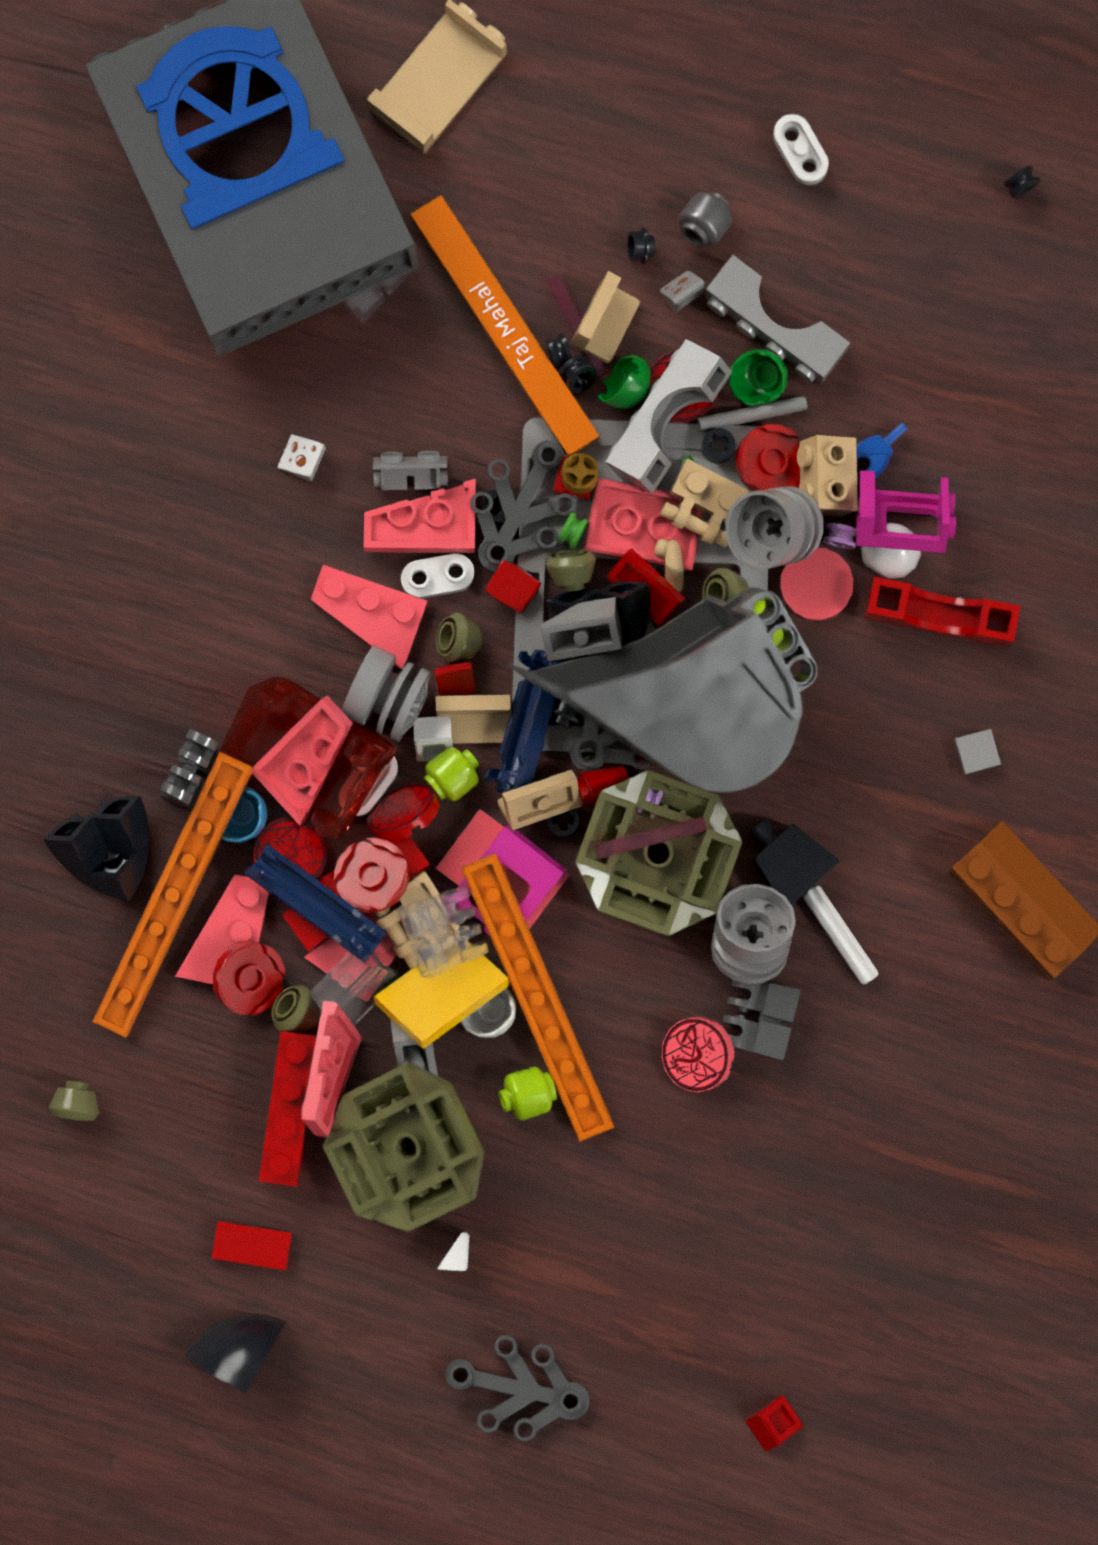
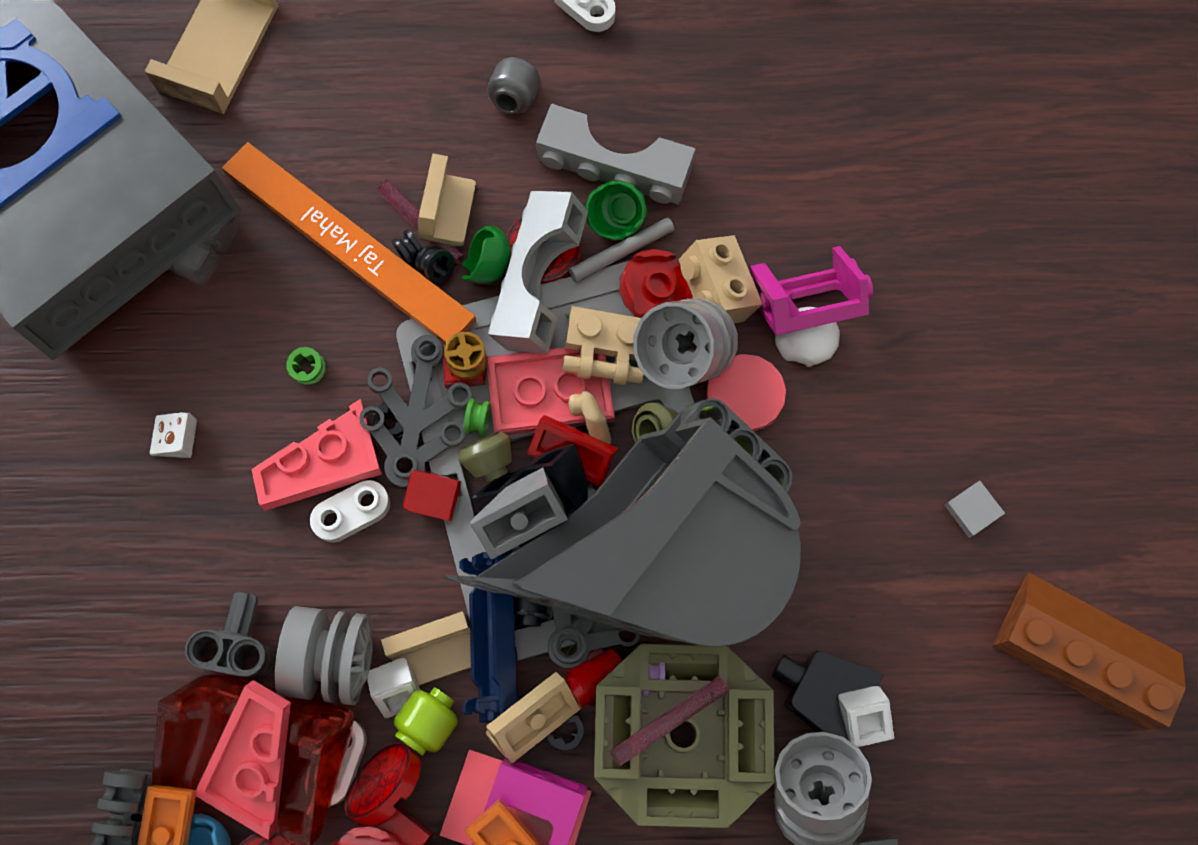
camera: 15 degrees left, 10 degrees down
(311, 657) = (233, 643): none -> dark grey beam
(371, 611) = (289, 570): coral wing -> none
(423, 467) = (274, 417): light grey hinge -> none
(441, 421) = (302, 377): none -> bright green bush
(455, 680) = (399, 614): red slope -> none
(458, 638) = (390, 569): olive cone -> none
(640, 245) = (459, 129): black plate -> none
(682, 290) = (515, 158): light grey slope -> none
(717, 457) = (596, 277): black bush -> none
(811, 888) = (866, 716): none -> white slope
(840, 536) = (753, 337): lavender bush -> none
(840, 934) = (925, 768): white axle -> none
(878, 450) = (759, 244): blue hand -> none
(961, 618) = (921, 375): red arch -> none

